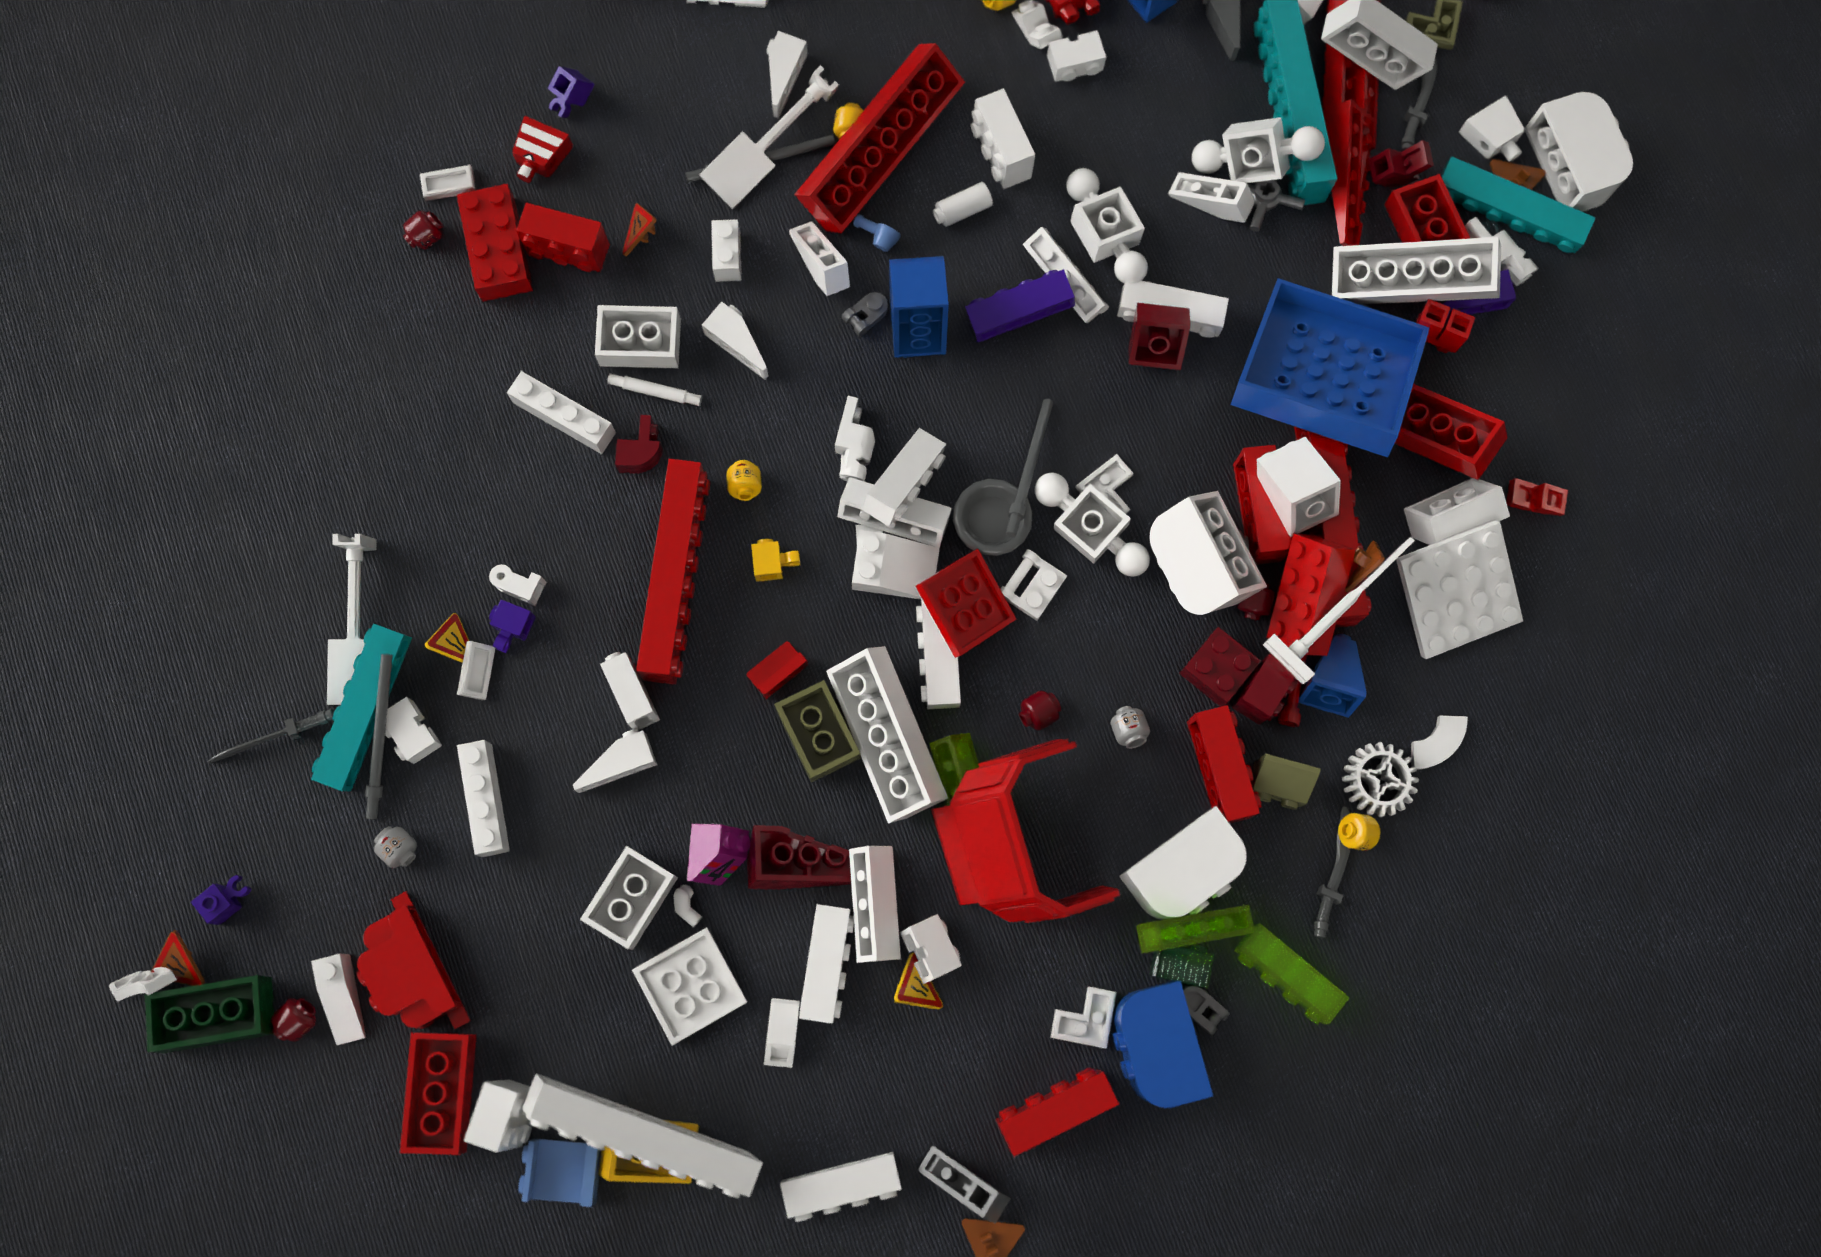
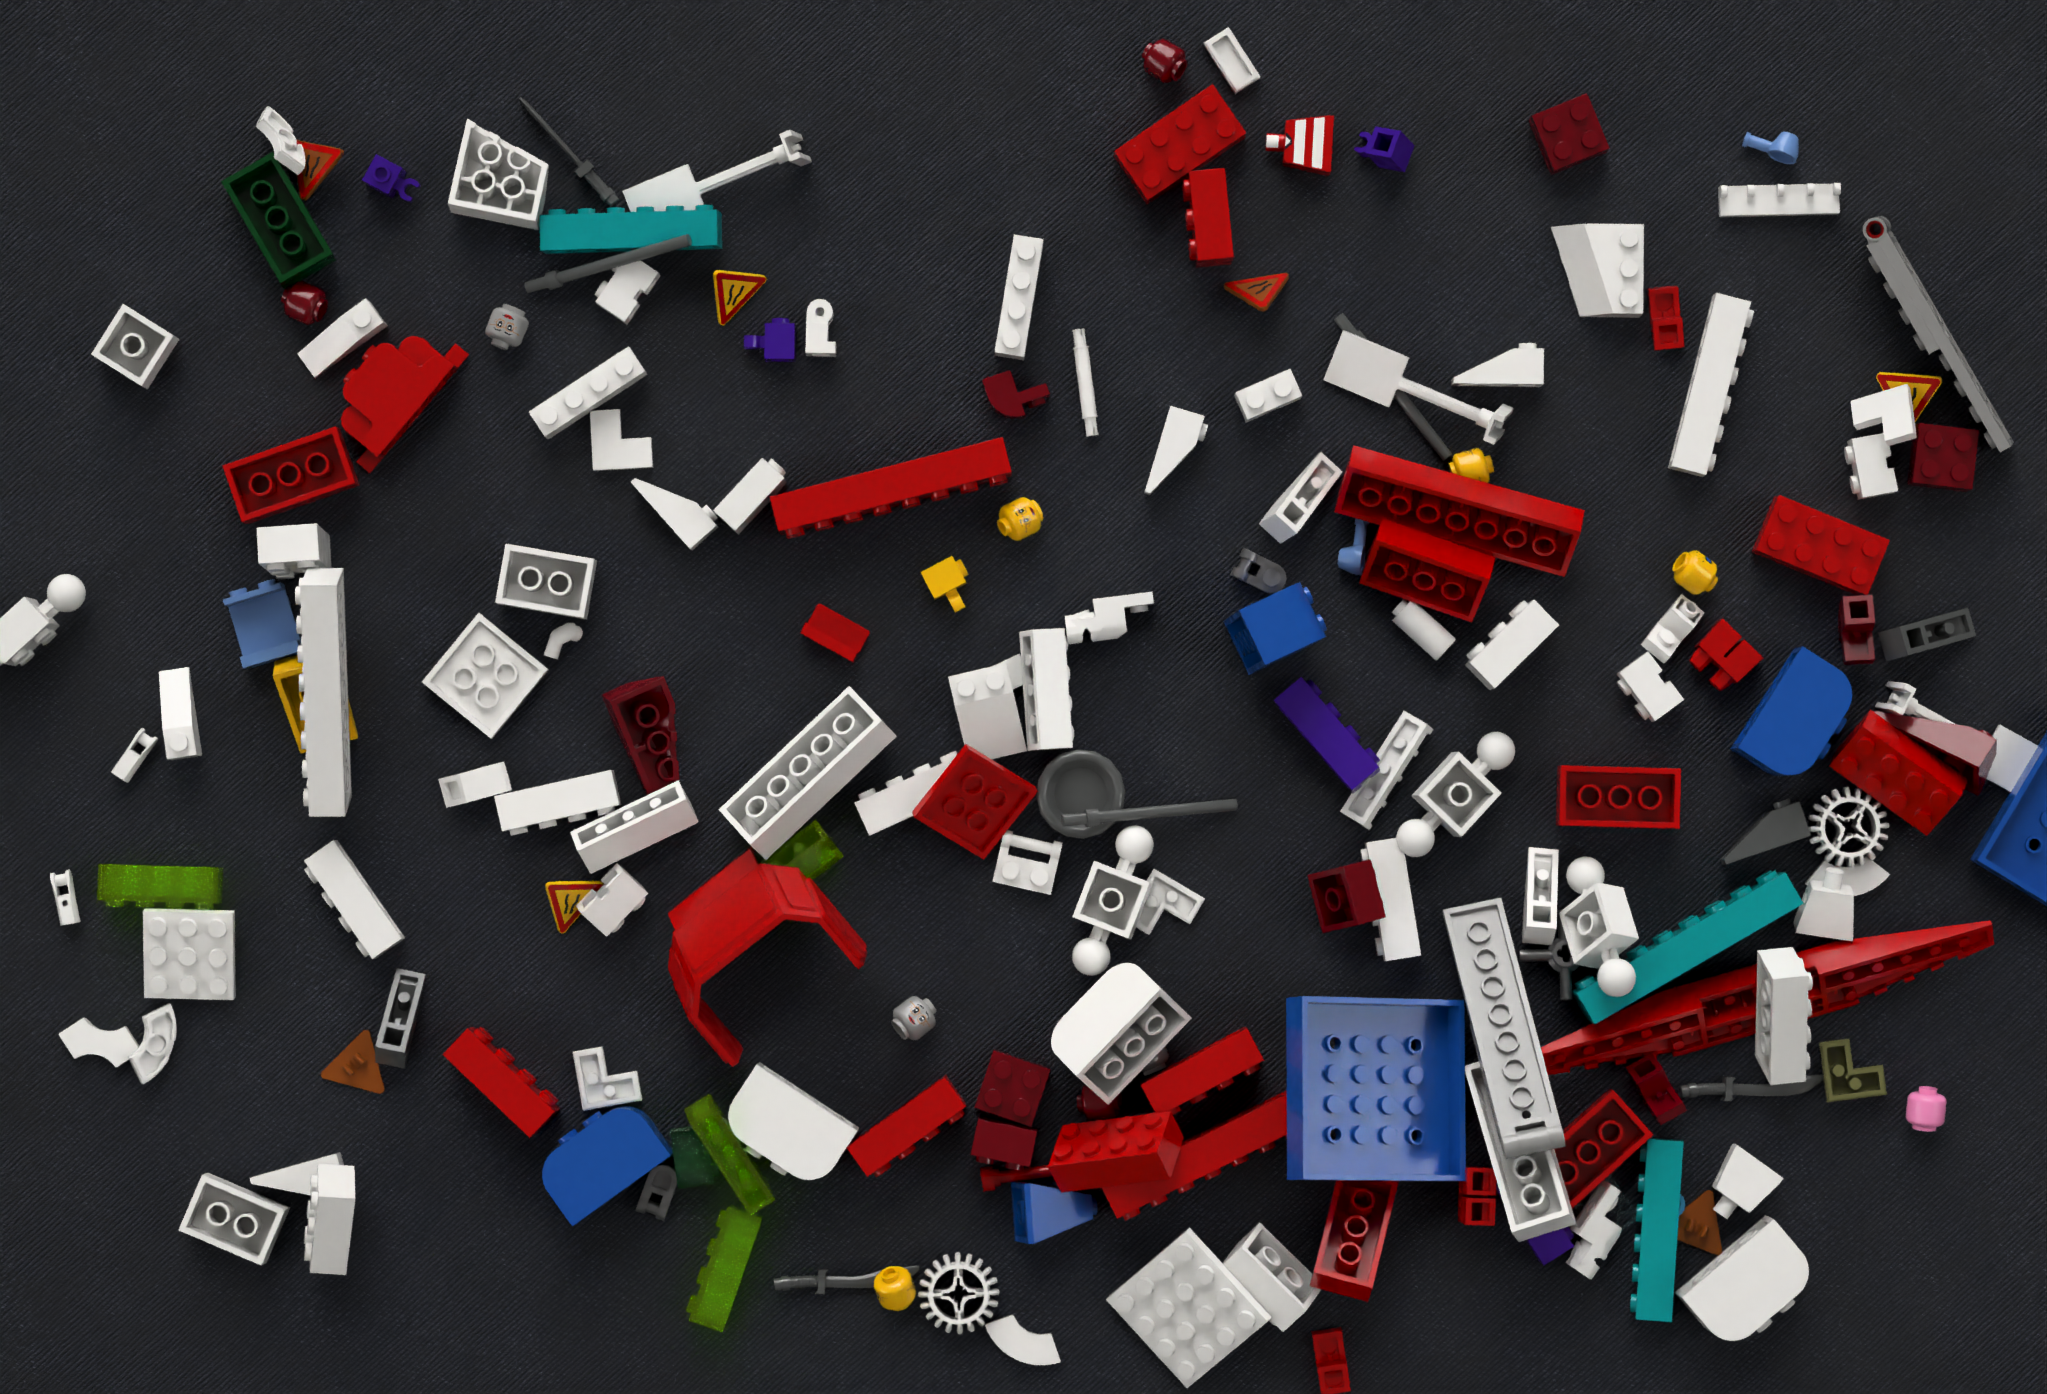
camera: 75 degrees right, 10 degrees up
(259, 1193) = (135, 346): none -> white brick
(266, 805) = (497, 180): none -> white wedge
(476, 670) = (714, 327): white tile -> none
(541, 799) = (612, 451): none -> white tile
(637, 336) = (1132, 343): white brick -> none
(716, 852) = (623, 649): magenta slope -> none
(817, 731) = (784, 701): olive brick -> none
(904, 477) = (1083, 686): white brick -> none
(918, 178) = (1427, 570): none -> red brick
(1040, 710) = (895, 919): dark red head -> none
(1155, 107) = (1618, 797): none -> red brick
(1283, 781) = (915, 1192): olive slope -> none
(1291, 656) = (1038, 1153): white piece -> none
(1299, 485) = (1222, 1098): white slope -> none
(1320, 249) = (1503, 1029): none -> hinge
(1367, 562) = (1165, 1195): dark orange piece -> none

